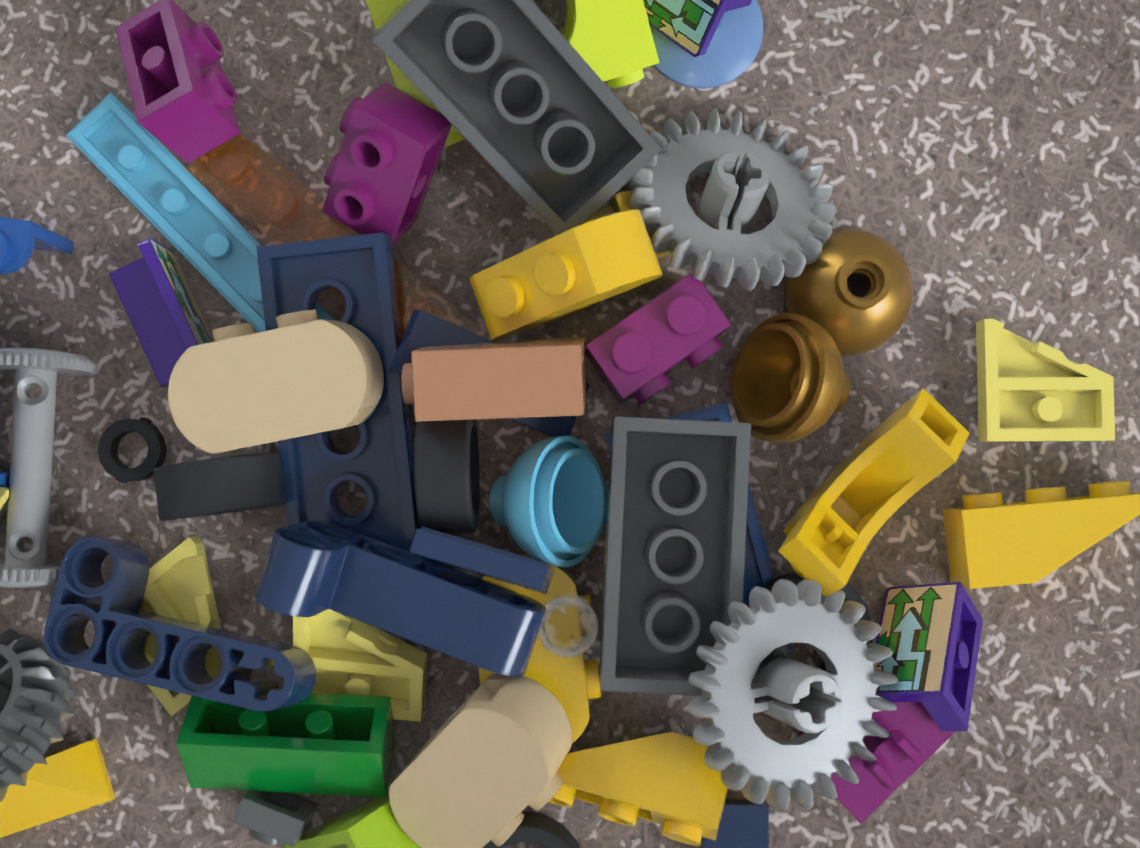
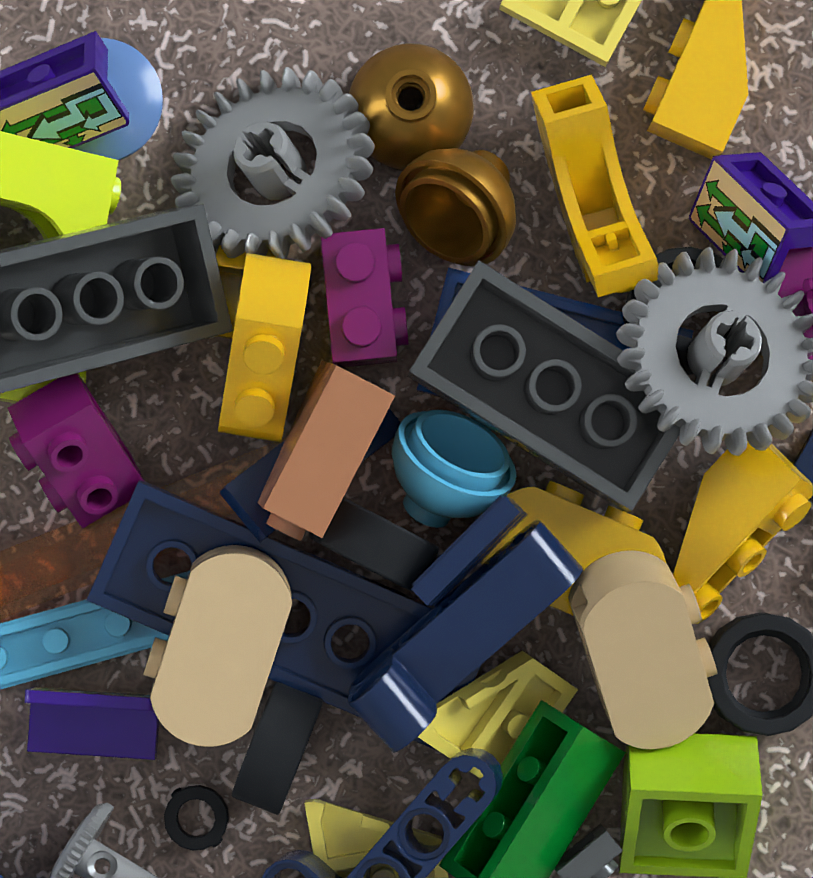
camera: 65 degrees left, 0 degrees up
(586, 619) = (565, 490): clear bush -> none

